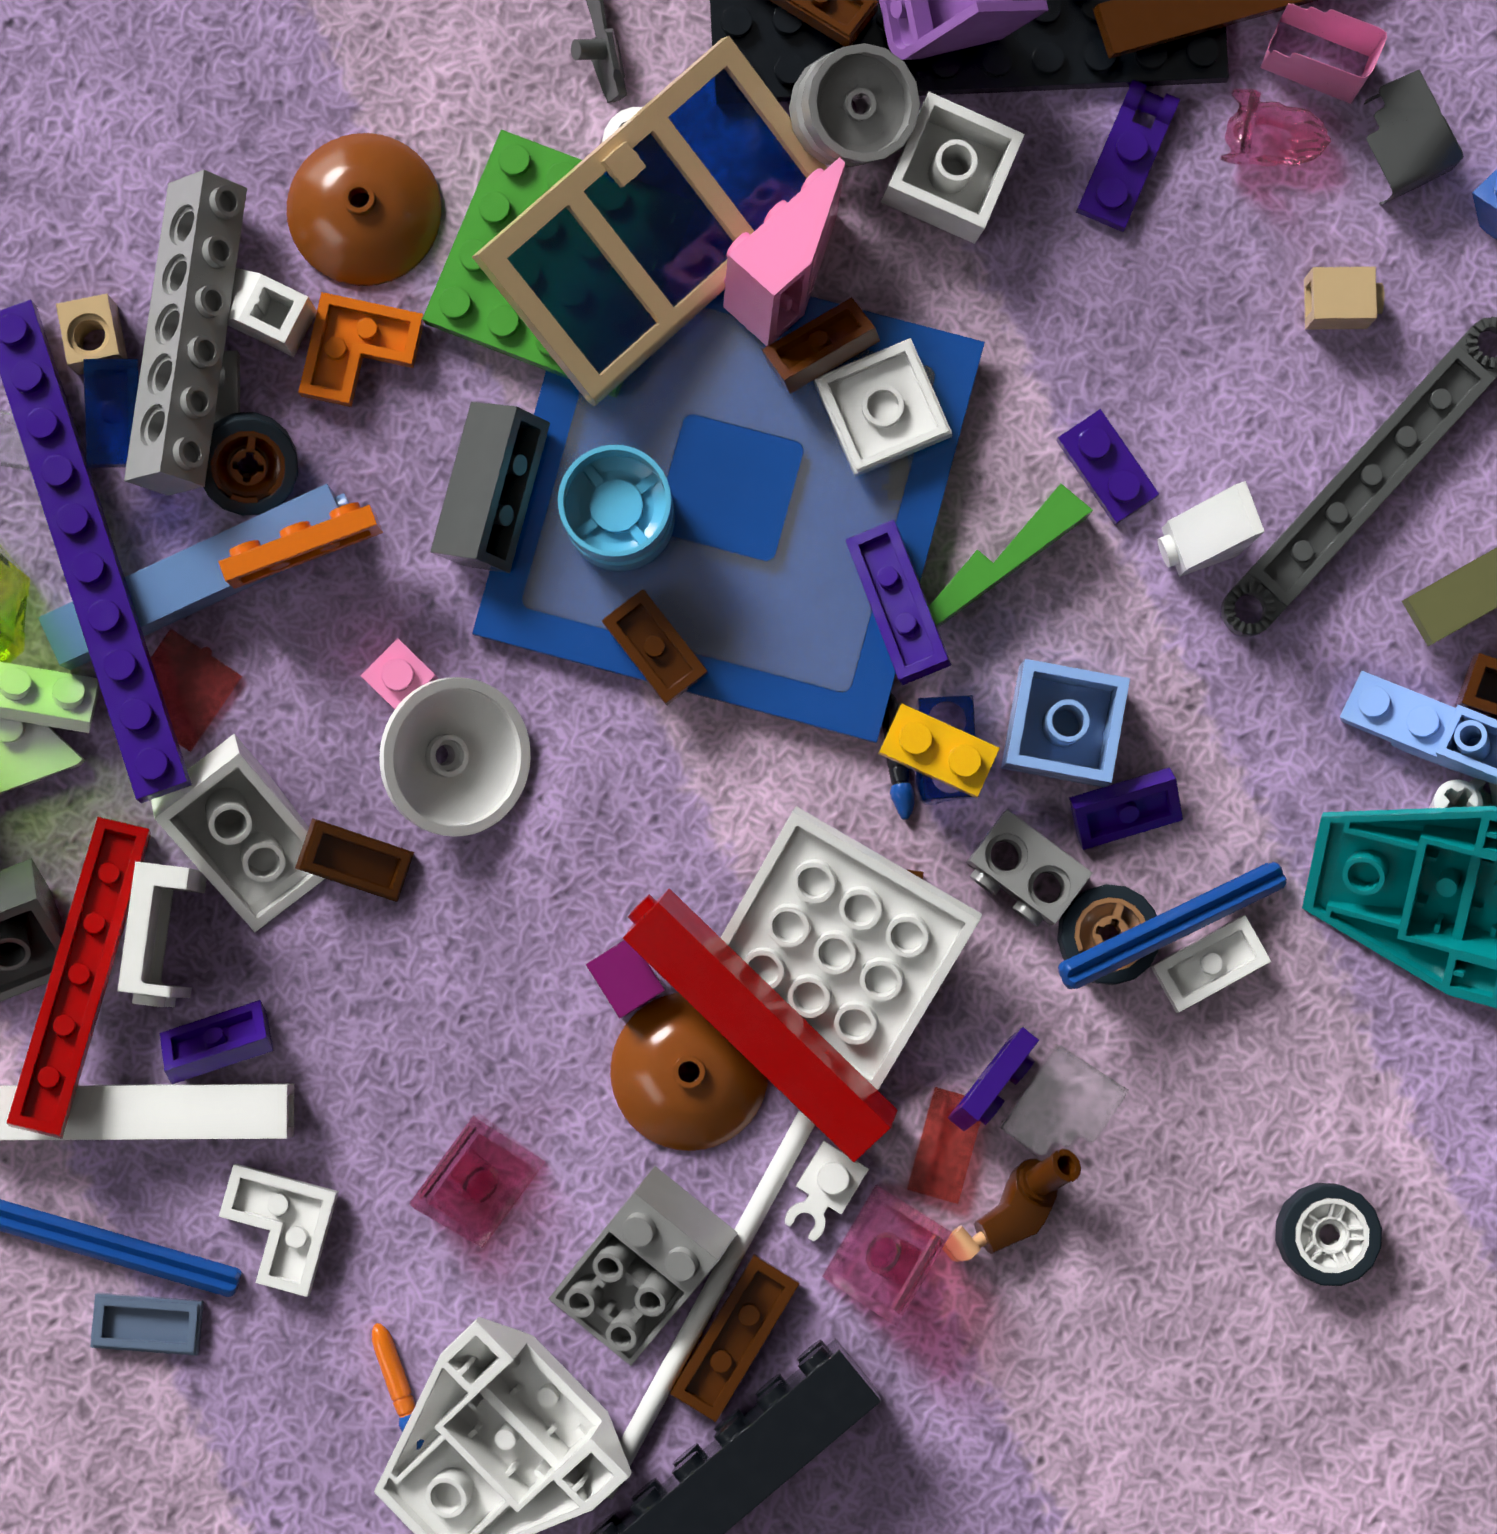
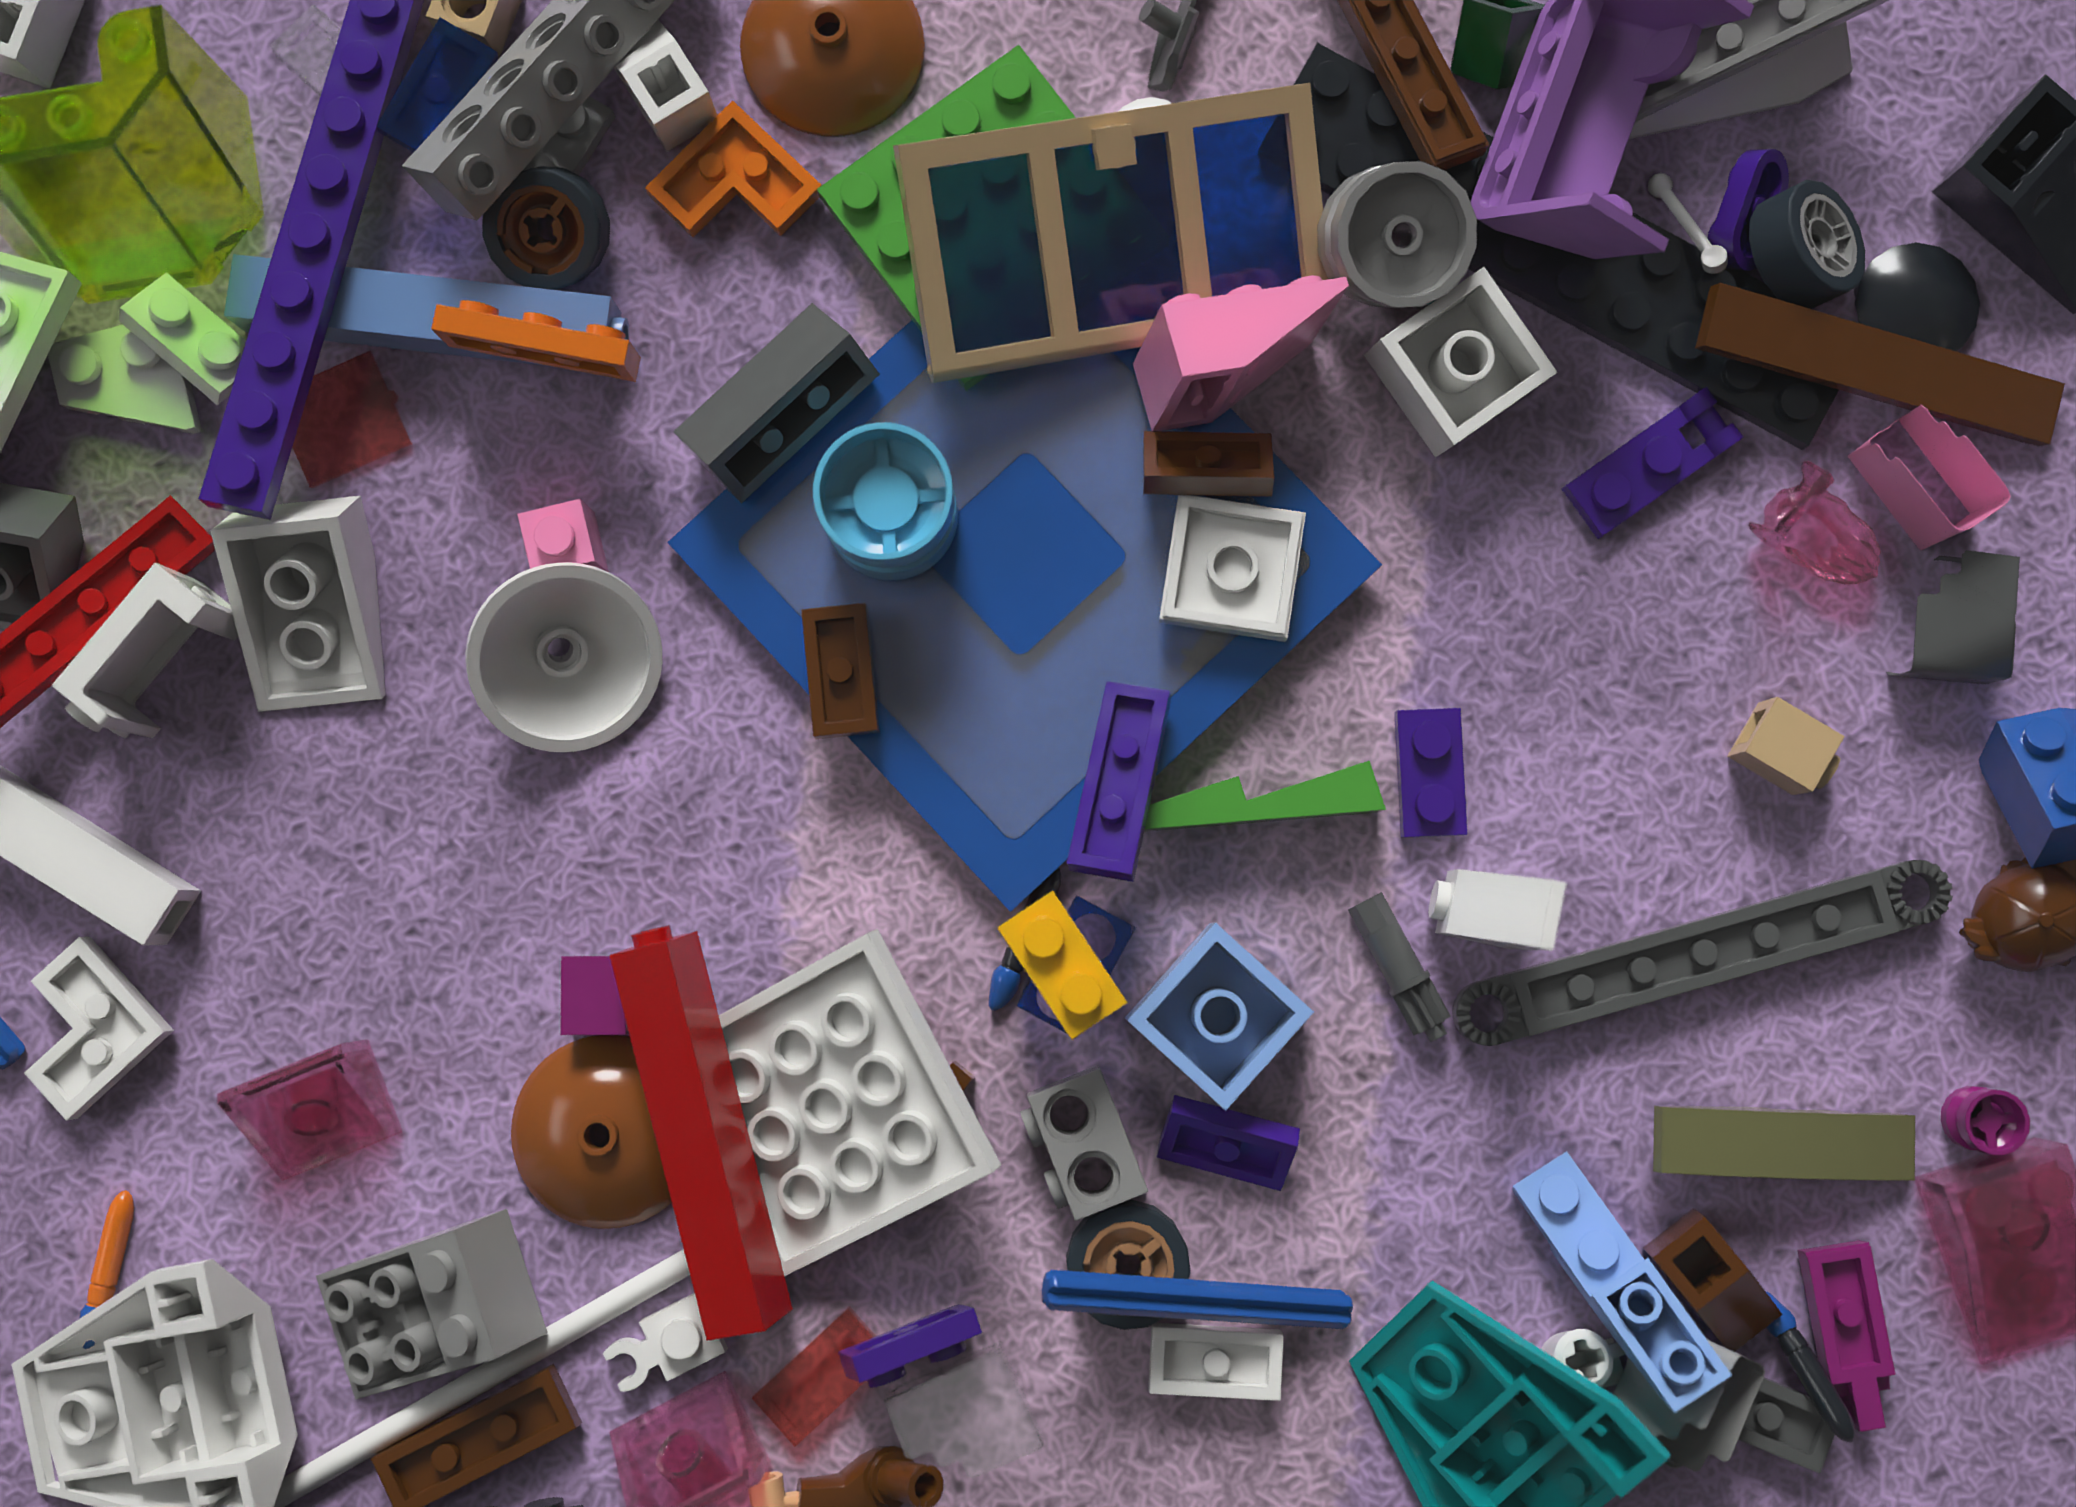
camera: 35 degrees right, 0 degrees up
(215, 1042) = (143, 799): dark purple plate -> none
(354, 860) = (399, 700): reddish brown tile -> none
(1171, 615) = (1400, 967): none -> dark grey piece

